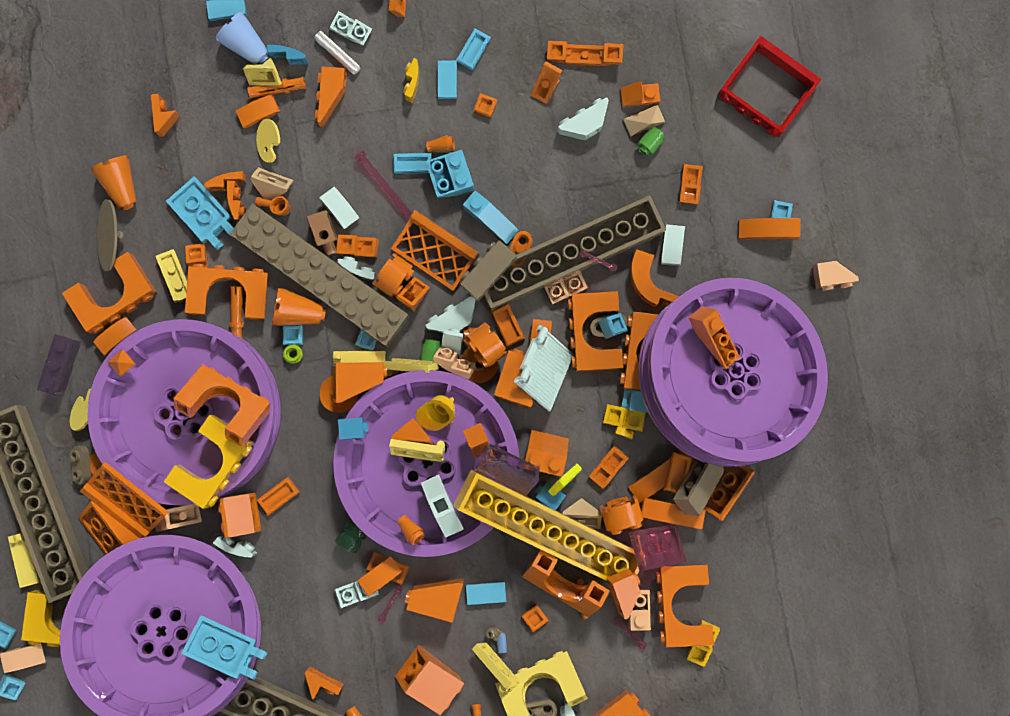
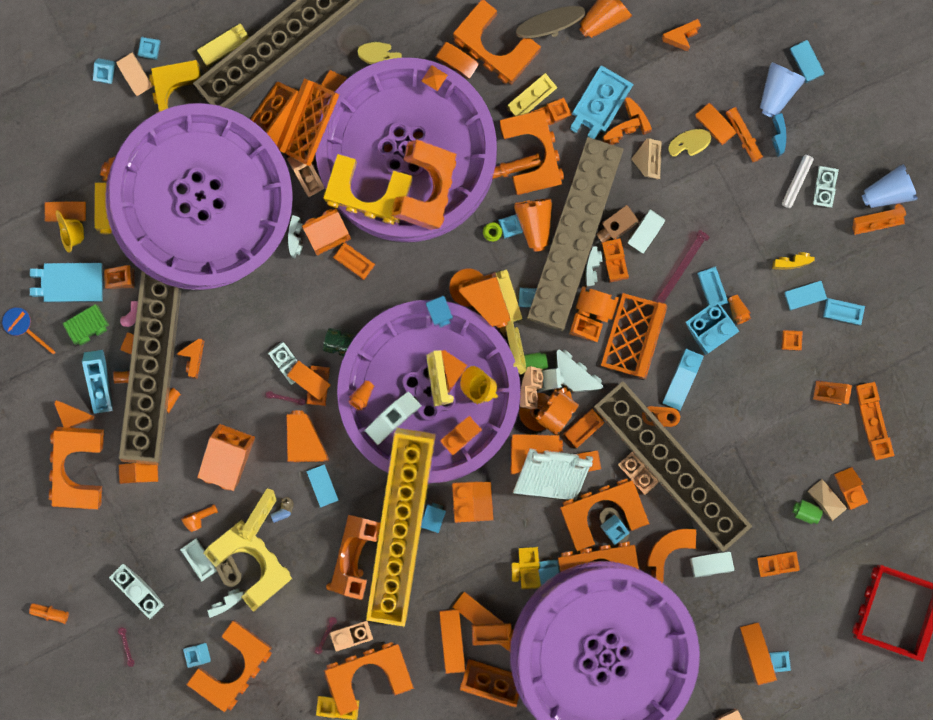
camera: 75 degrees right, 0 degrees up
(58, 365) = (413, 18): clear purple brick -> none
(80, 465) = (327, 68): dark tan plate -> none
(222, 648) = (202, 257): medium azure tile -> none
(262, 74) = (752, 118): light yellow slope -> none
(275, 205) = (629, 169): orange bar -> none
(332, 88) = (758, 188): orange slope -> none
(487, 270) = (629, 392): dark tan brick -> none
(506, 469) = (446, 467): brick -> none
(534, 618) = (313, 539): orange tile -> none
(564, 480) = (452, 527): neon yellow tile -> none
(585, 514) = (426, 557): tan slope -> none
(586, 122) = (806, 443): light aqua slope -> none
(608, 467) = (477, 566): orange slope -> none
(613, 267) = (670, 511): clear pink hinge -> none
(621, 514) = (436, 592): orange brick -> none
(624, 591) = (365, 615): orange slope -> none
(657, 547) = (415, 635): clear pink plate -> none
(698, 487) = (484, 656): dark tan brick -> none
(714, 335) = (632, 625): orange slope -> none

